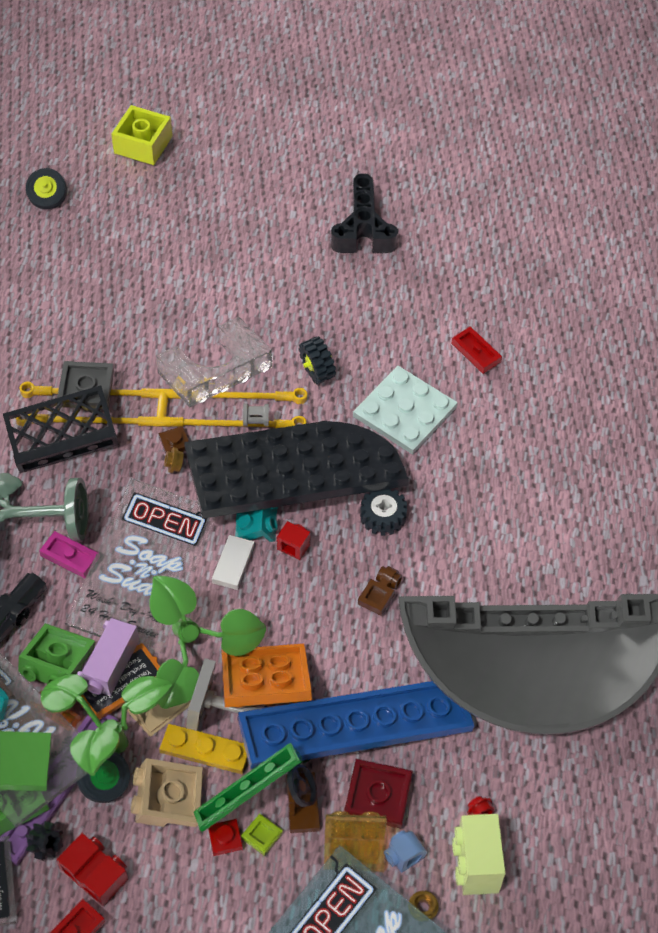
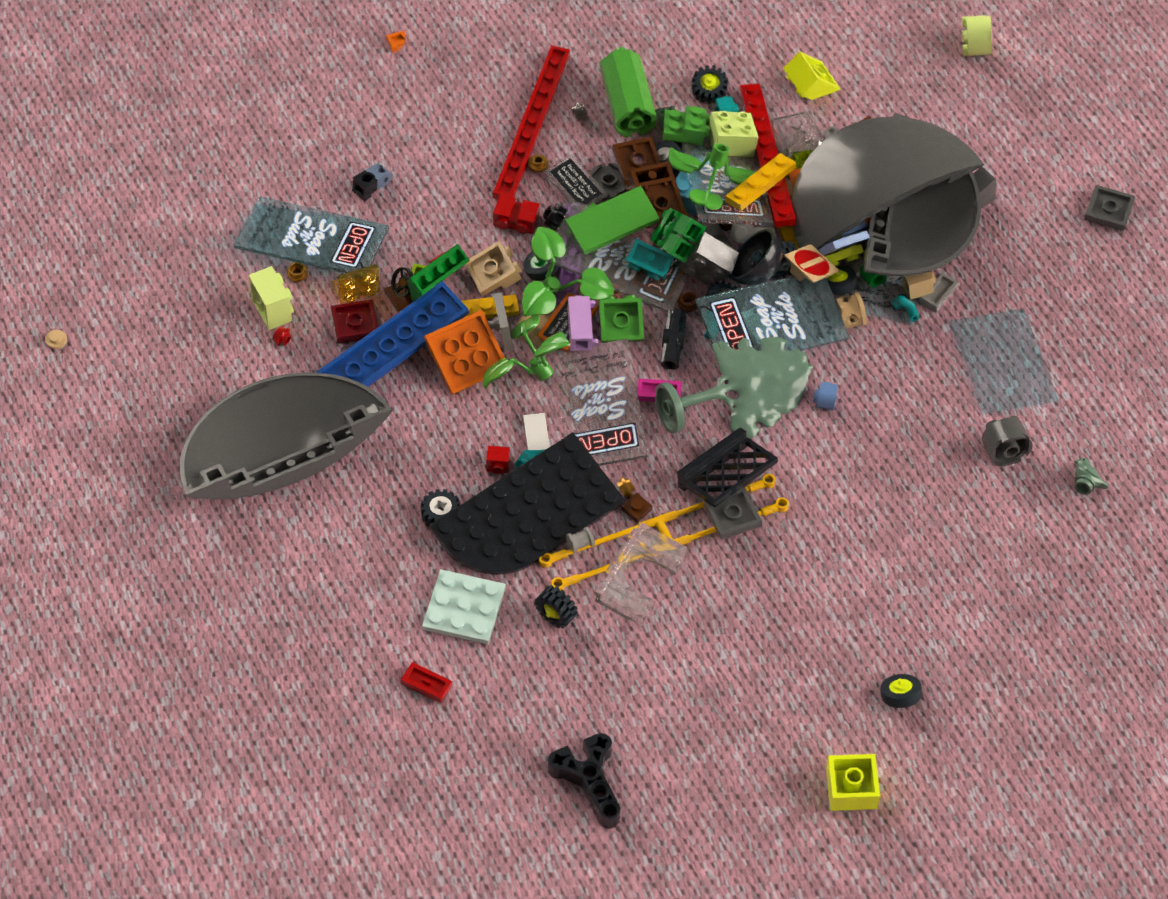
camera: 155 degrees right, 0 degrees up
(379, 594) = (415, 446): reddish brown plate -> none
(404, 851) = (321, 293): medium blue plate -> none

